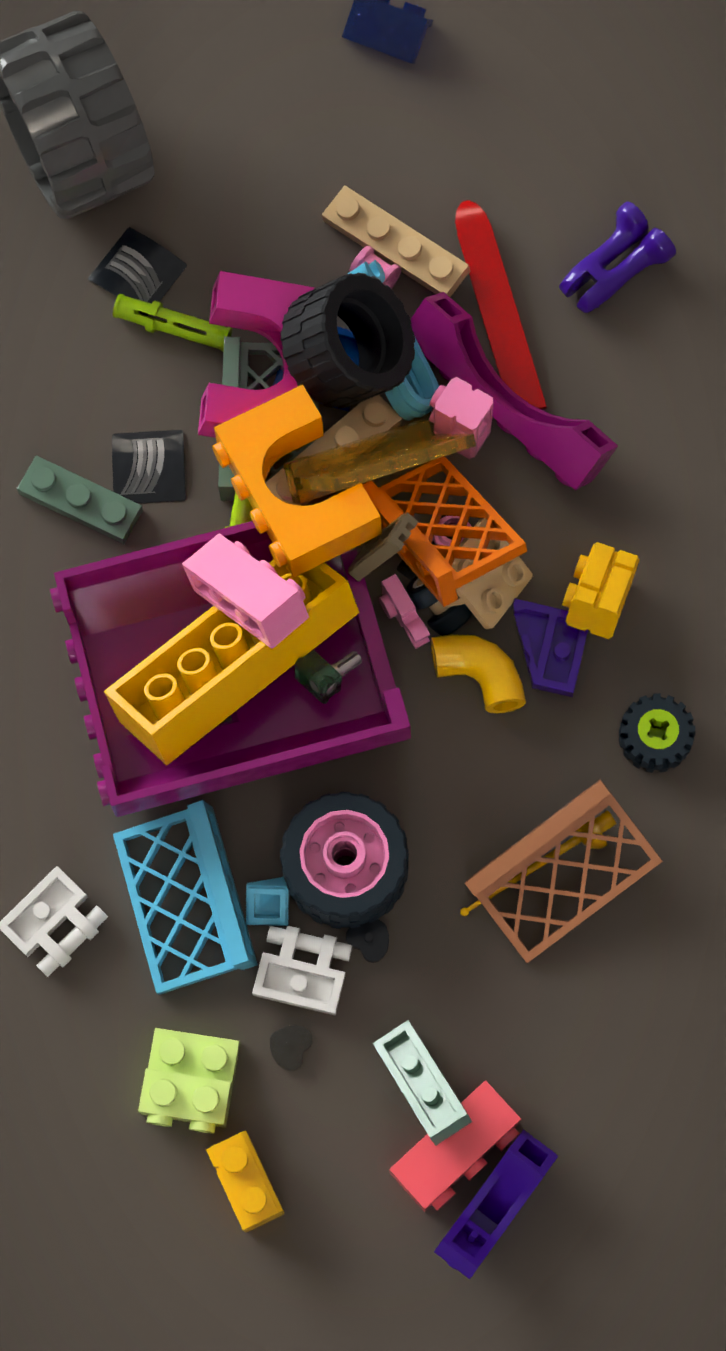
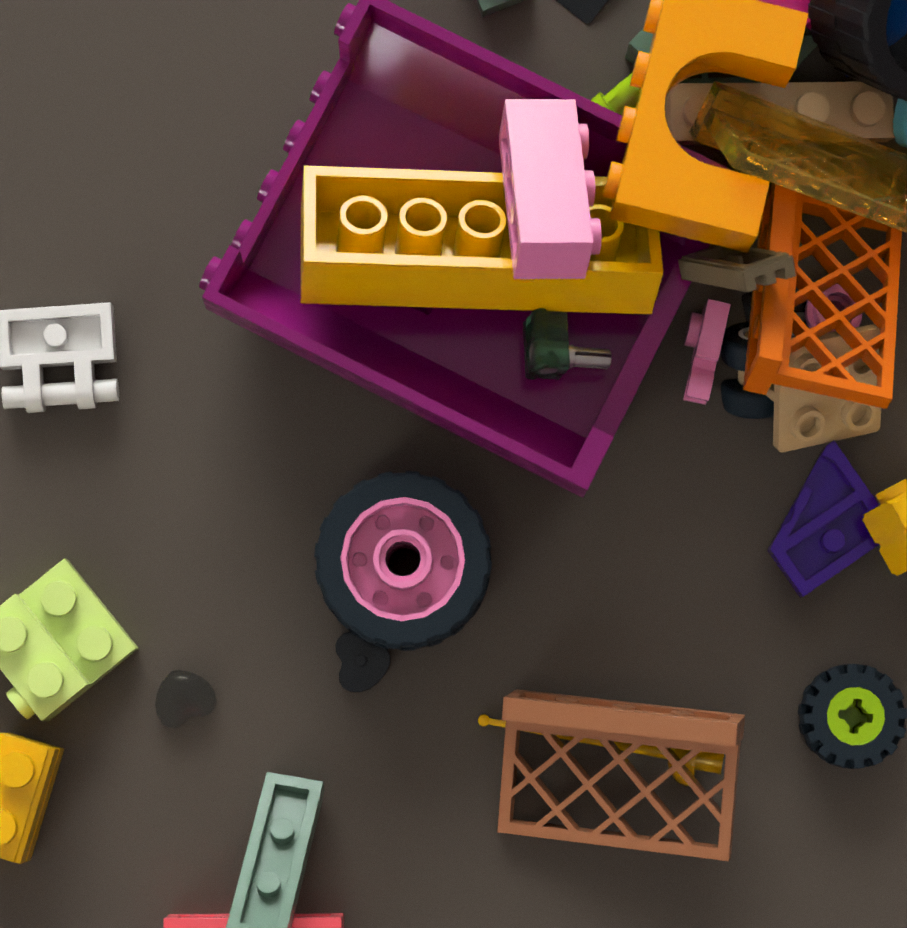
camera: 40 degrees right, 10 degrees up
(220, 892) = (255, 471): medium azure fence -> none
(267, 902) = (290, 531): medium azure slope -> none
(300, 982) = (249, 644): white plate -> none
(484, 663) = (739, 483): yellow cylinder -> none

